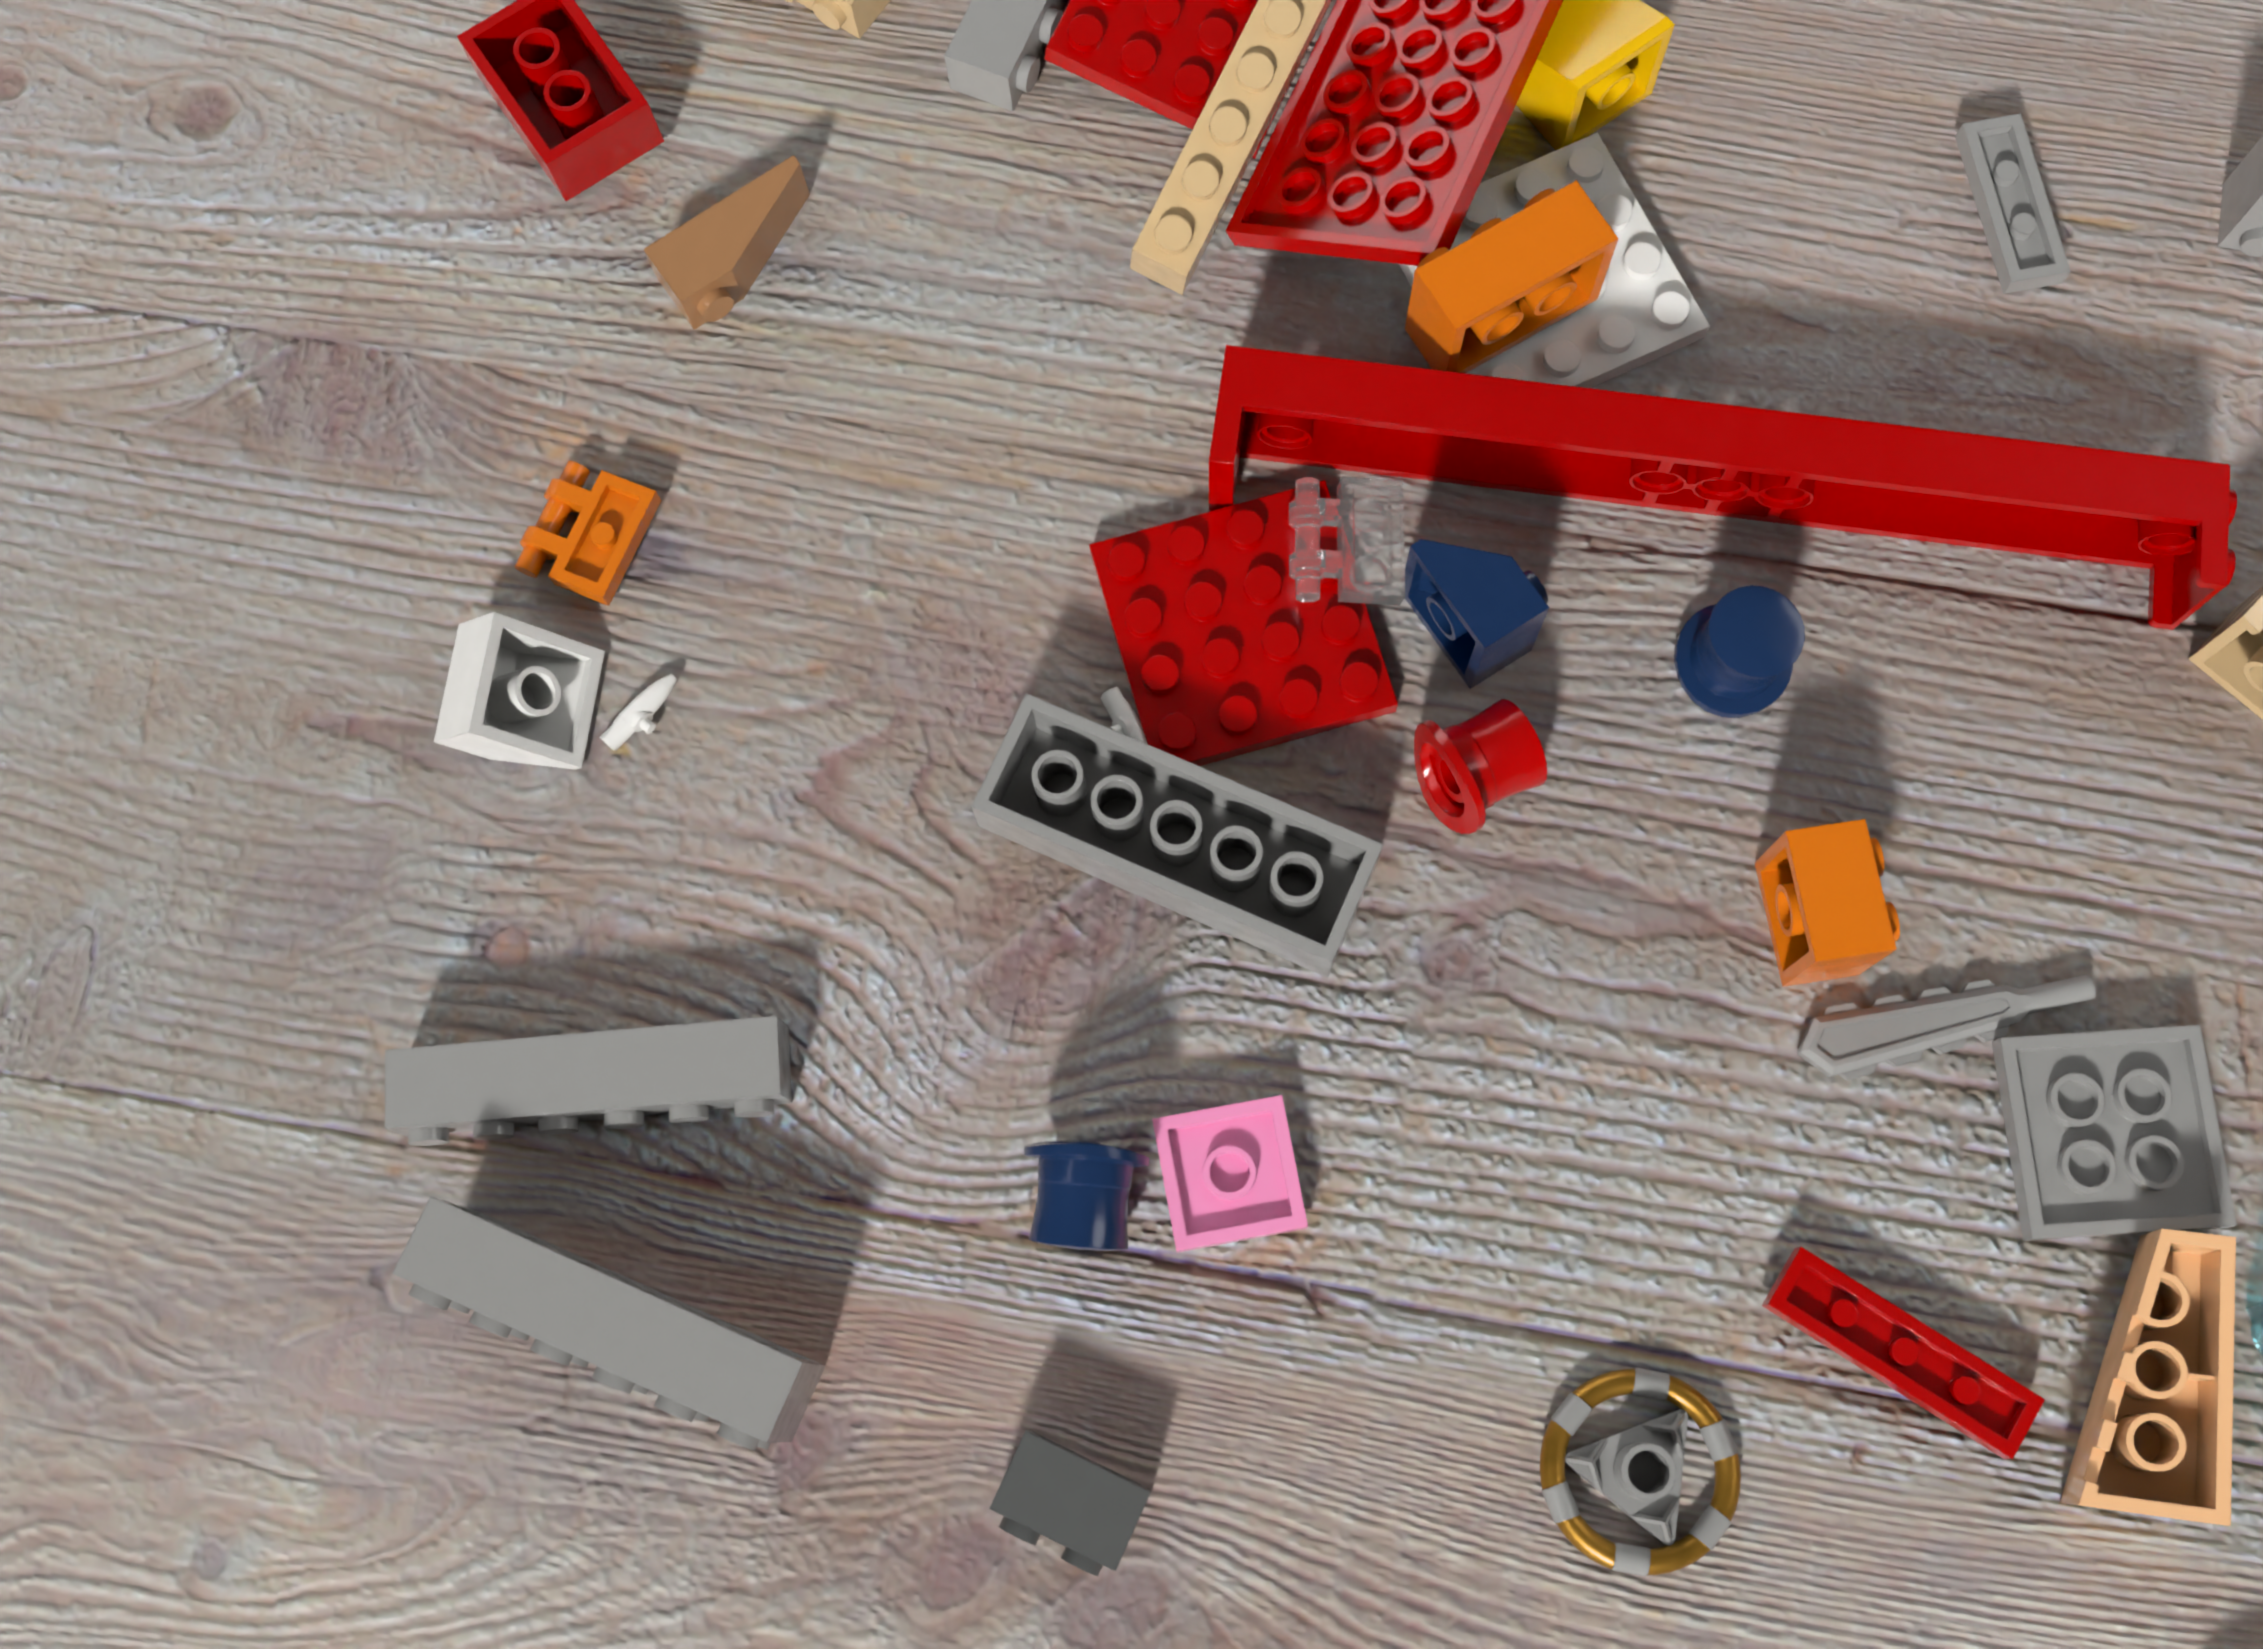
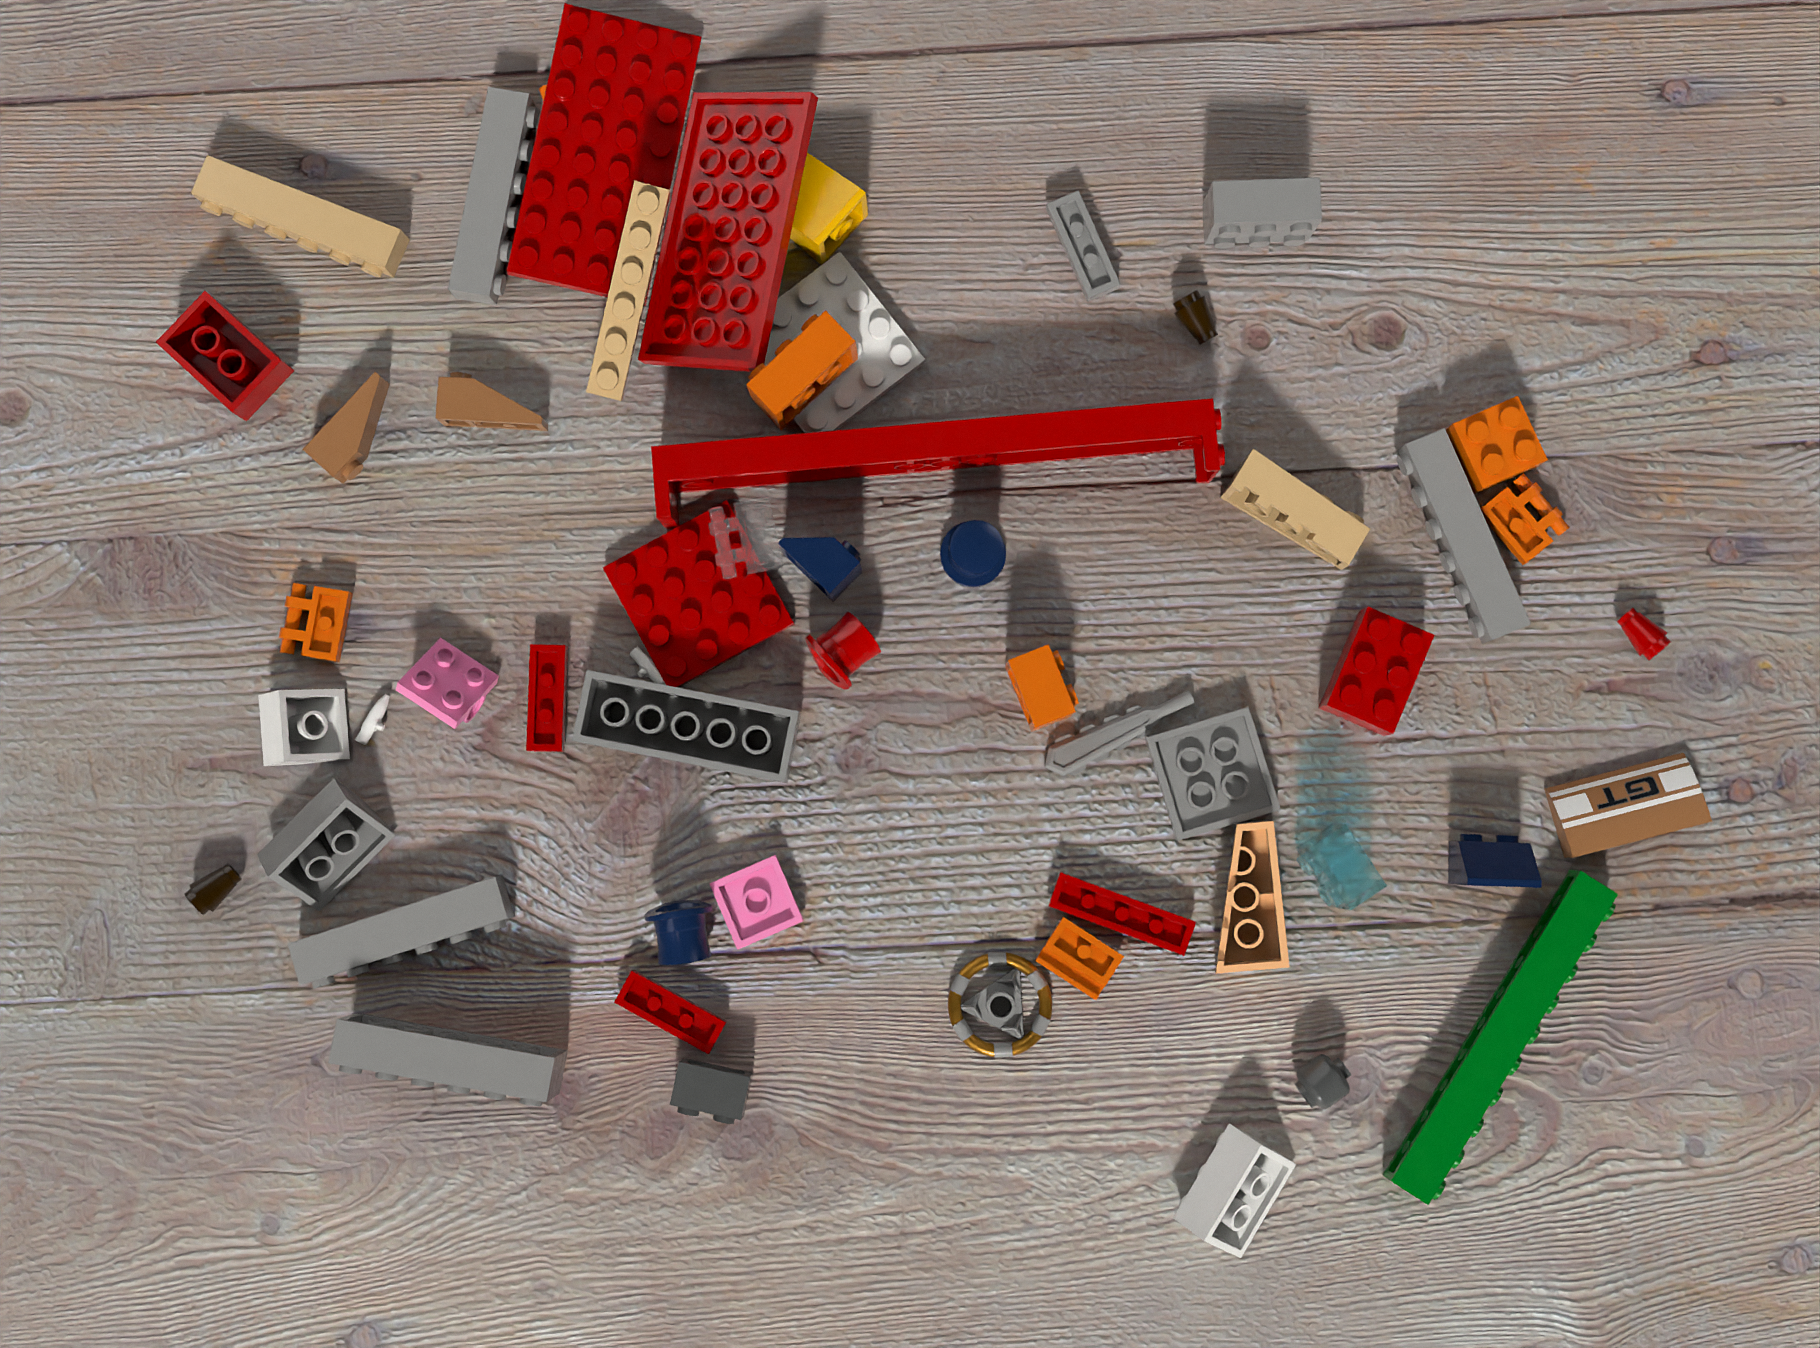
camera: 15 degrees left, 10 degrees up
(287, 931) = (212, 889): none -> dark brown cone
(499, 901) = (325, 845): none -> light grey slope
(781, 675) = (448, 684): none -> bright pink plate
(942, 738) = (547, 698): none -> red plate
(945, 247) = (470, 403): none -> medium nougat slope
(1029, 1337) = (670, 1011): none -> red plate
(1808, 1417) = (1079, 958): none -> orange plate
(2192, 350) = (1196, 316): none -> dark brown cone

